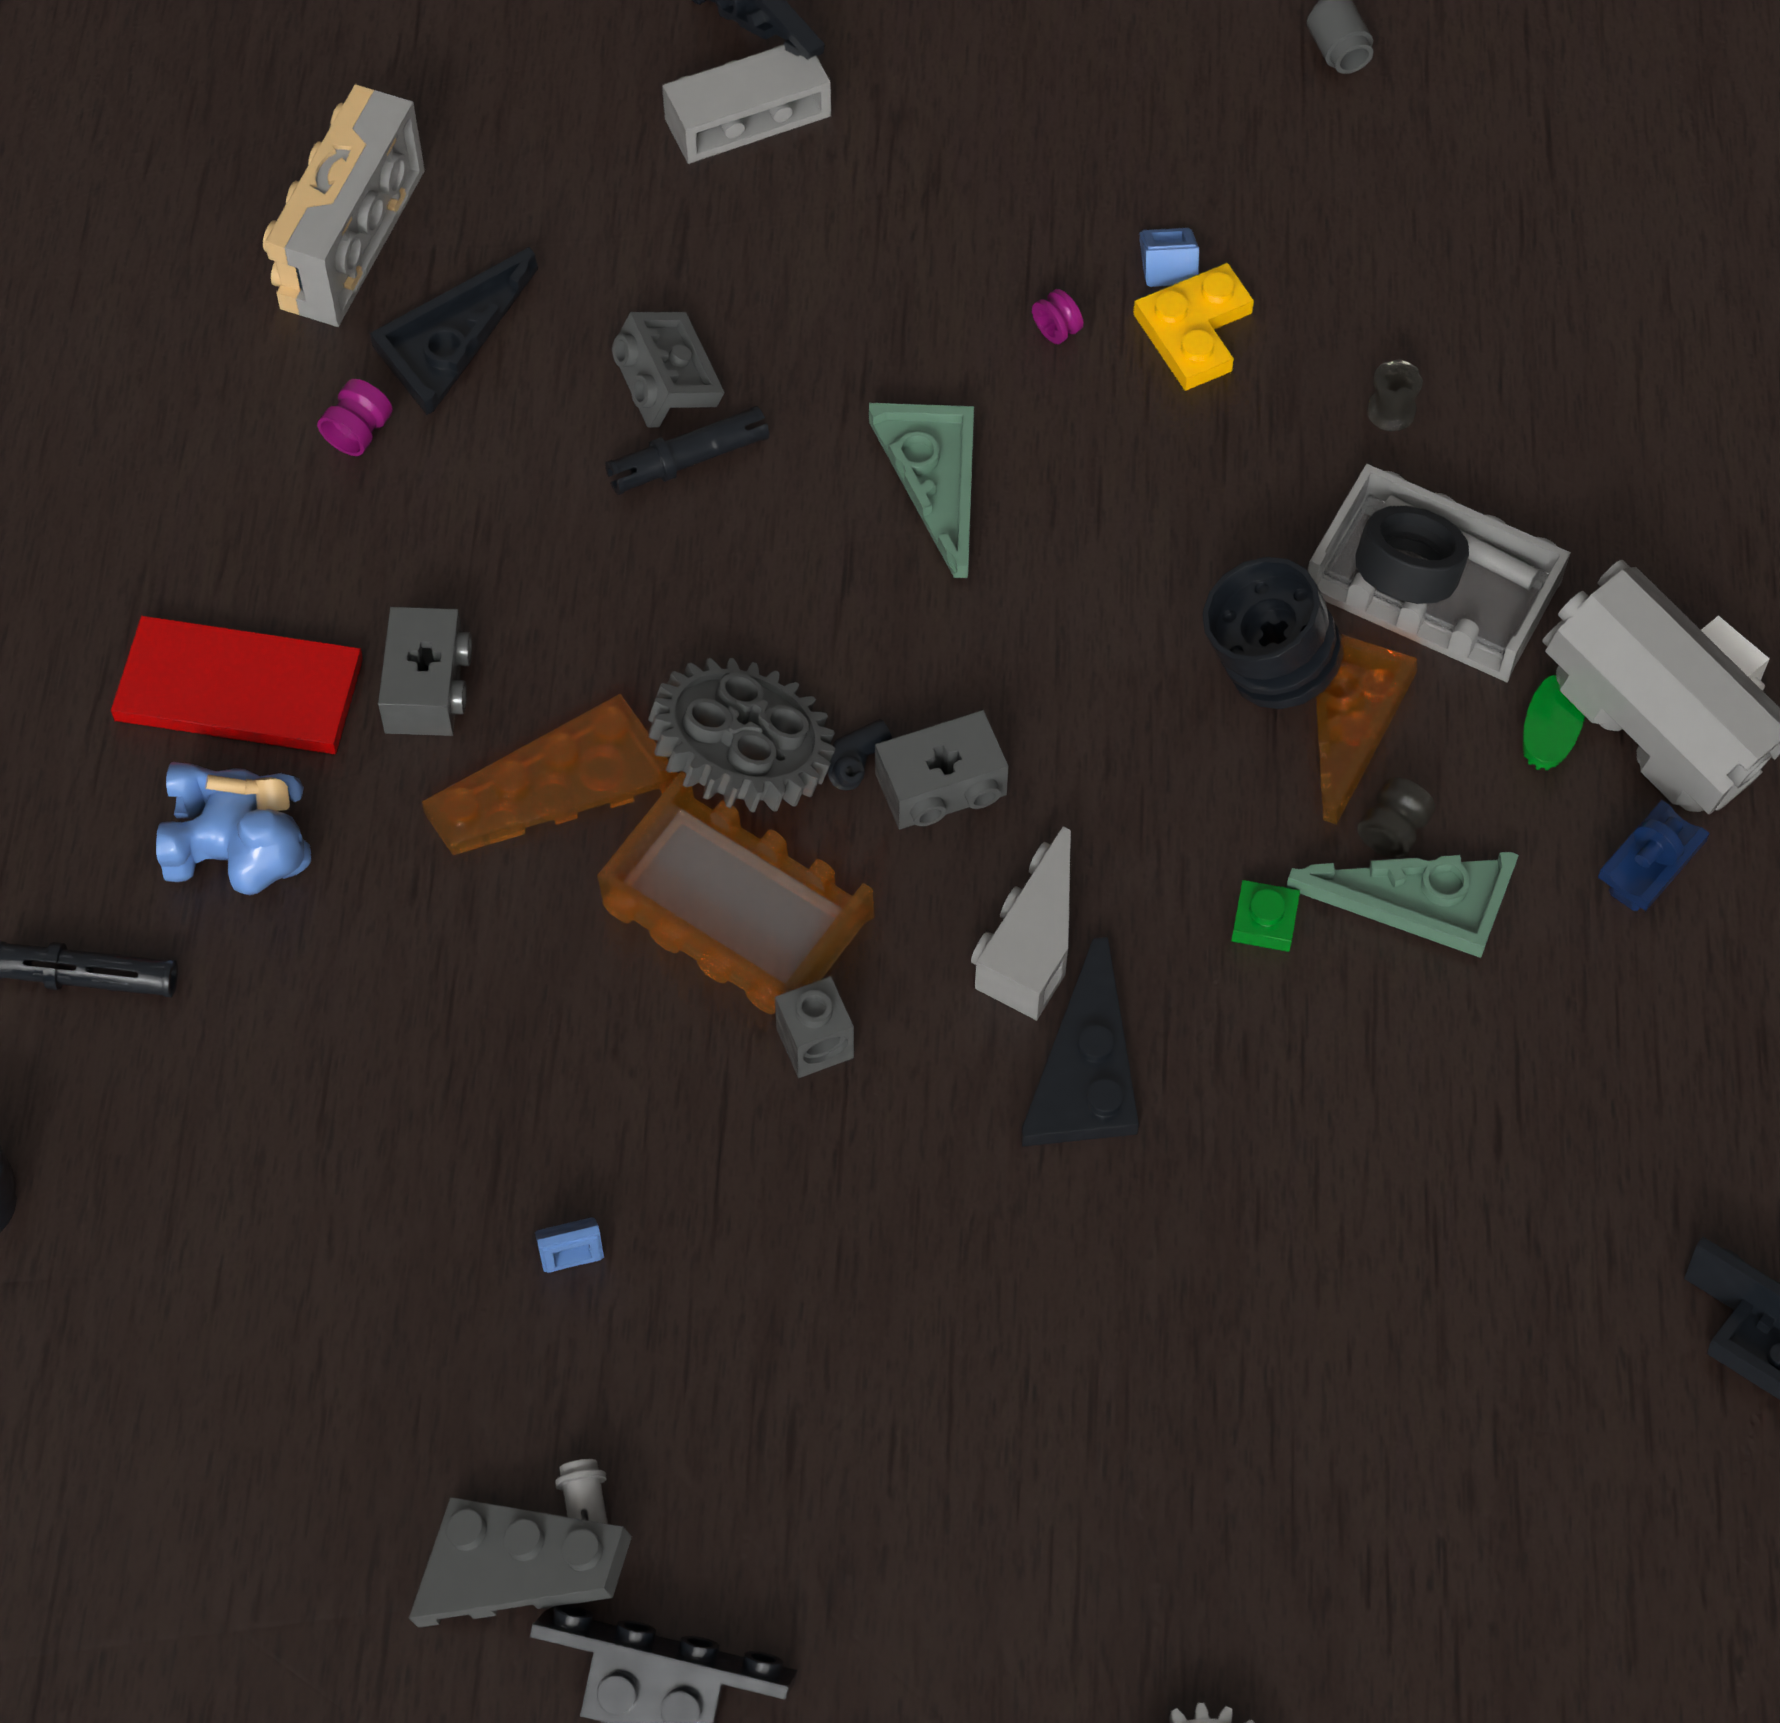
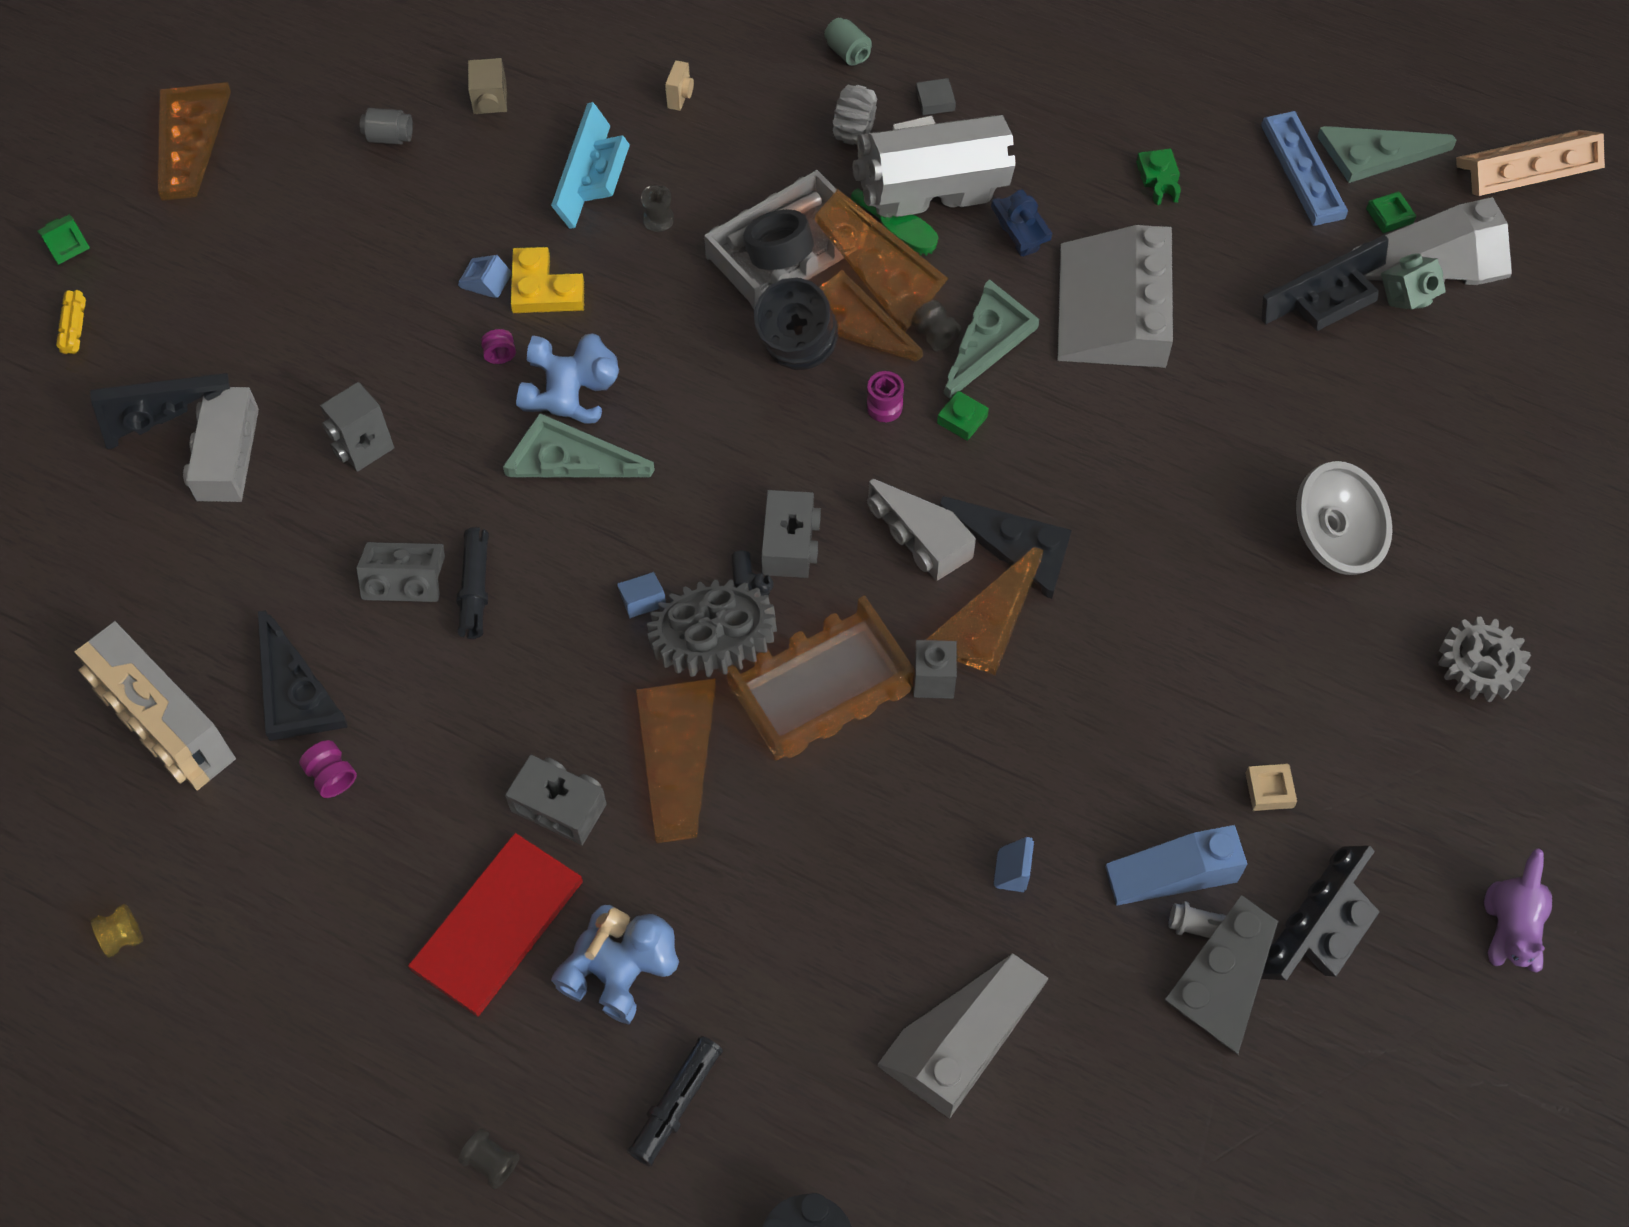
camera: 65 degrees left, 0 degrees up
(64, 313) = (116, 930): none -> clear yellow wheel
(291, 1262) = (955, 1041): none -> light grey wedge
(657, 1450) = (1179, 866): none -> medium blue slope
(767, 642) = (641, 594): none -> medium blue slope
(832, 217) = (356, 427): none -> dark grey brick
(839, 1534) = (1271, 787): none -> tan plate
(924, 1069) = (989, 619): none -> clear orange wing
(1072, 426) = (589, 367): none -> medium blue animal
(1233, 800) = (885, 396): none -> magenta wheel
(1350, 1530) = (1344, 518): none -> light grey dish
(1418, 285) = (590, 167): none -> medium azure bracket
(1458, 706) = (883, 262): none -> clear orange wing
(1482, 111) = (487, 86): none -> dark tan brick
(1597, 1045) = (1117, 298): none -> light grey slope
(1631, 328) = (678, 85): none -> tan plate
(1711, 562) = (854, 113): none -> light grey gear

